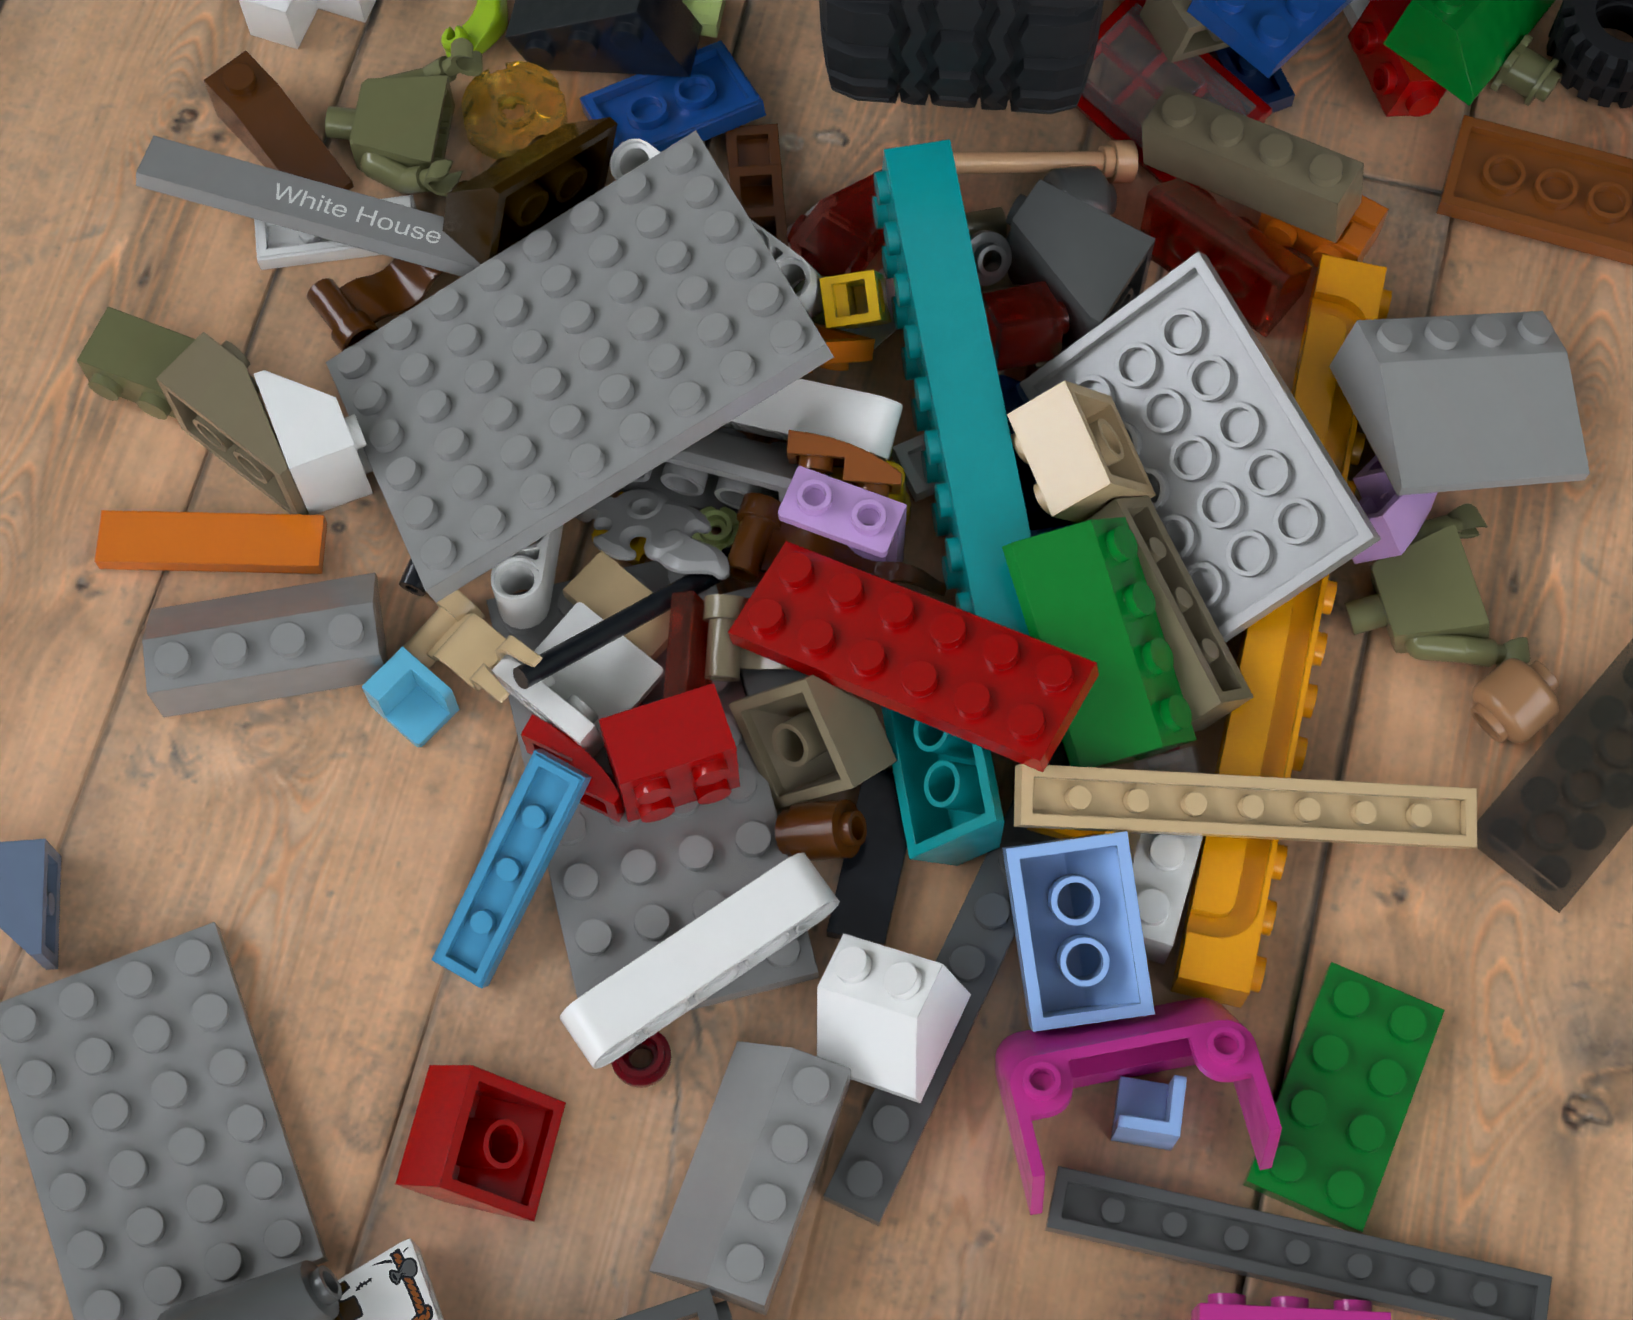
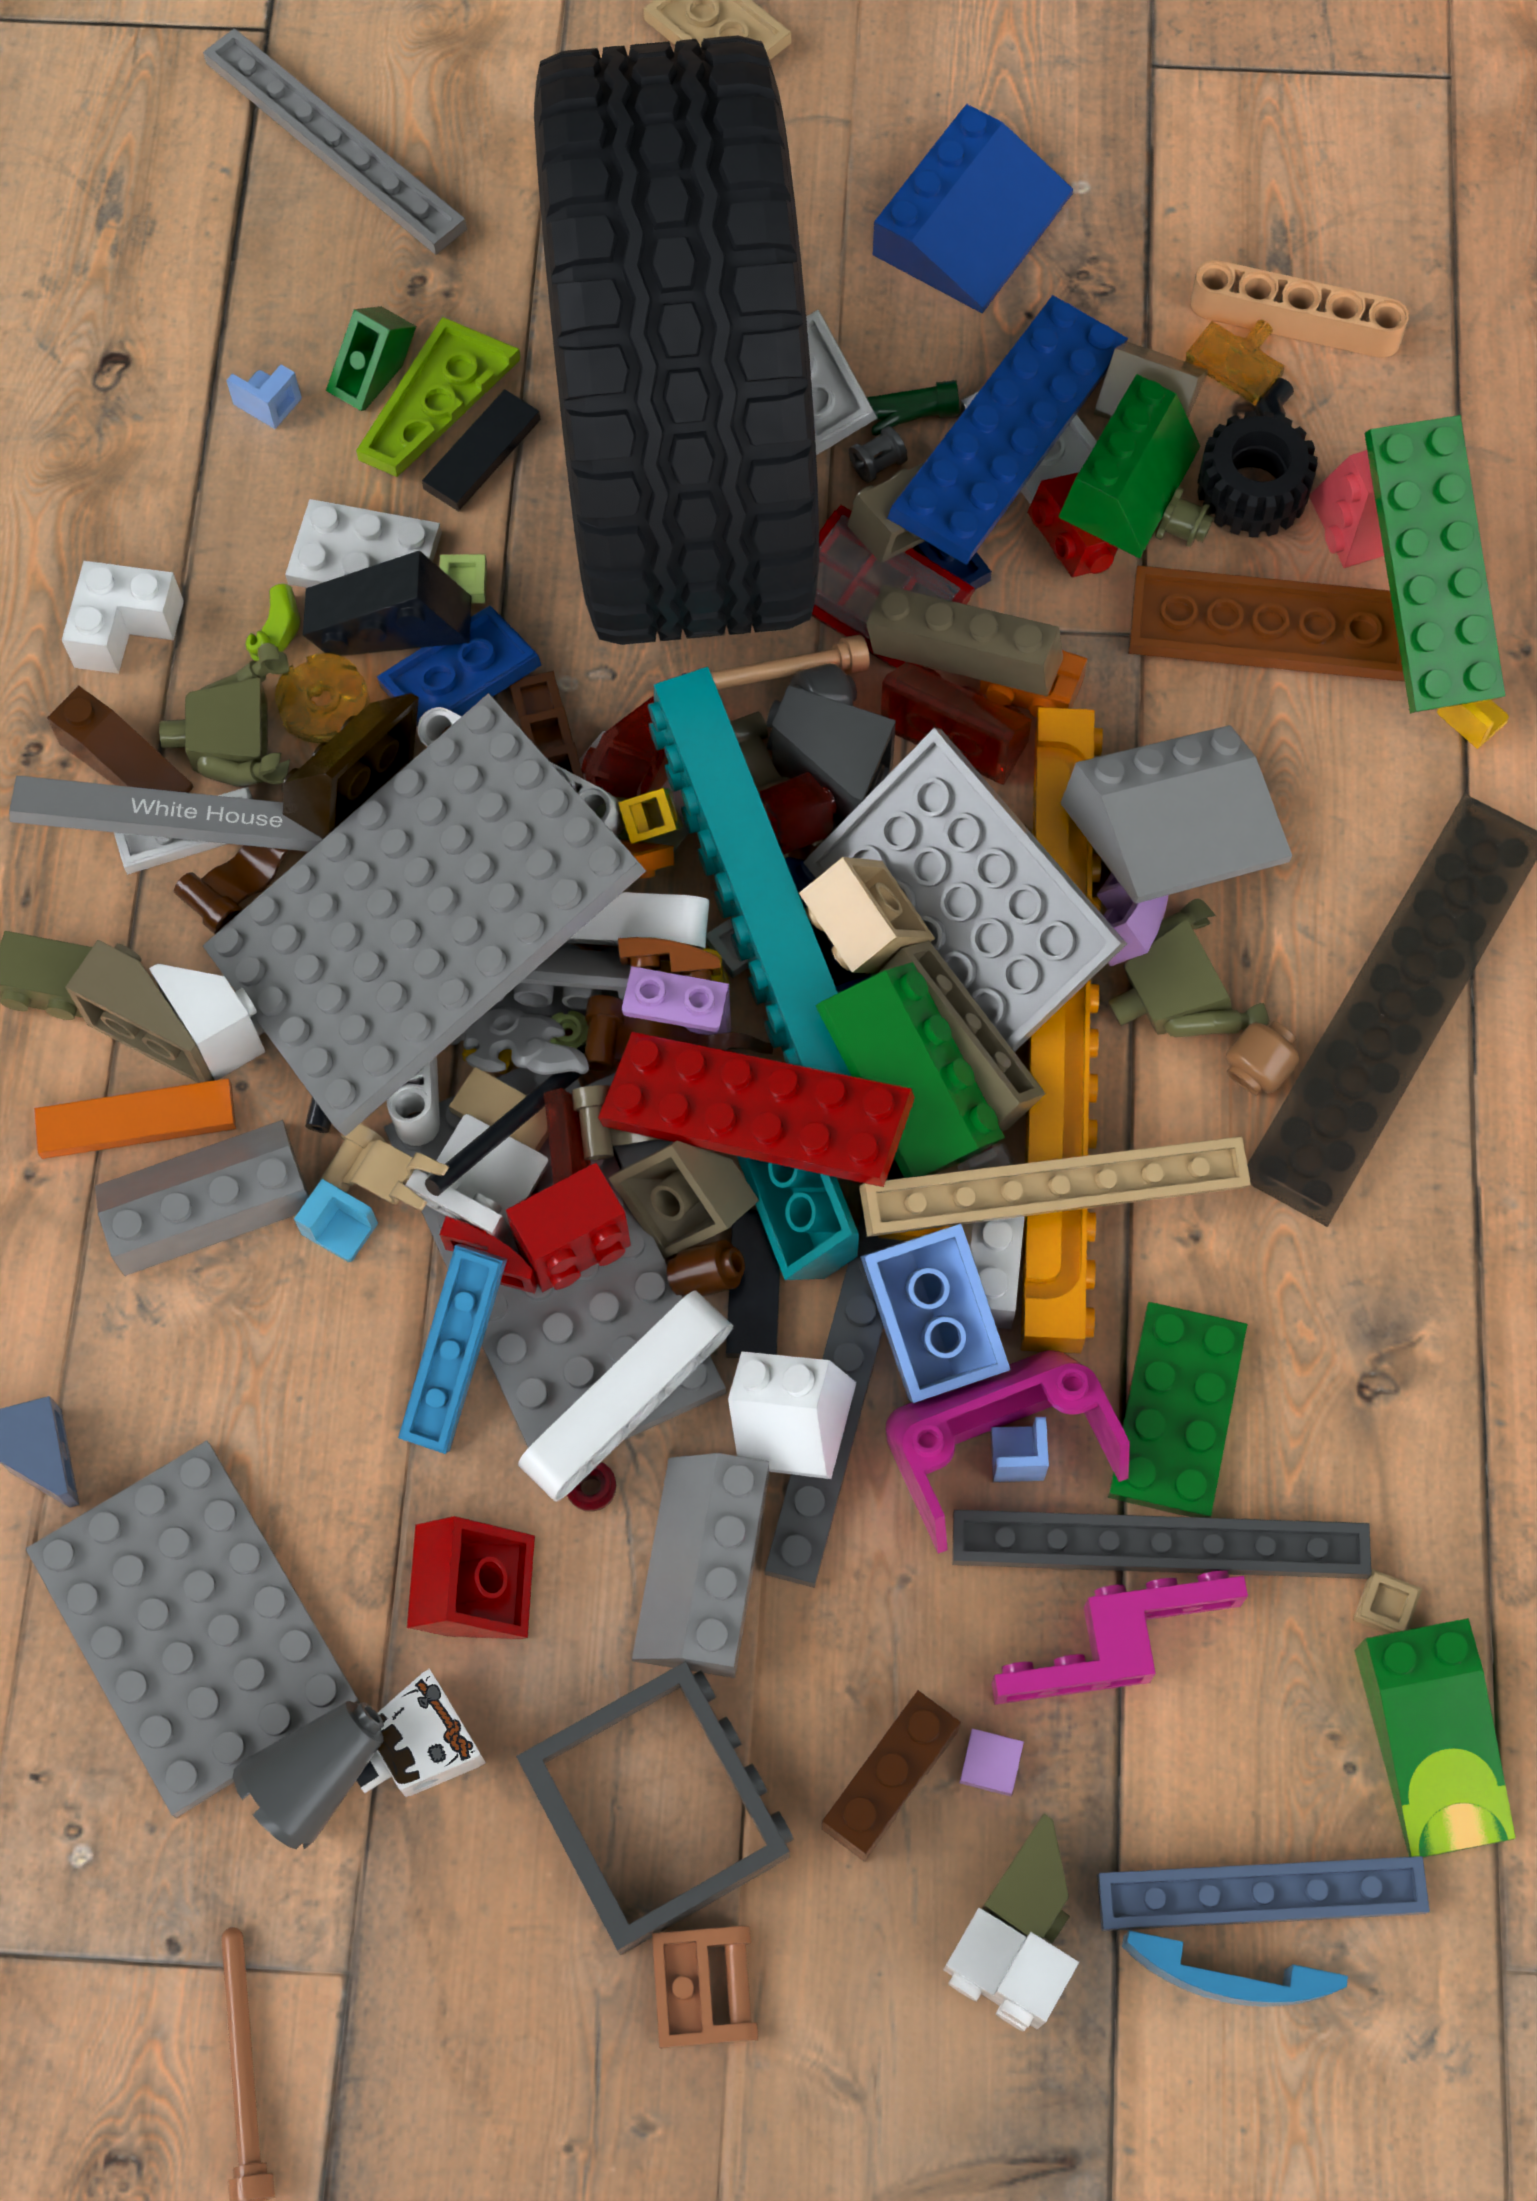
camera: 10 degrees left, 0 degrees up
(1001, 256) = (767, 756): dark grey plate -> none

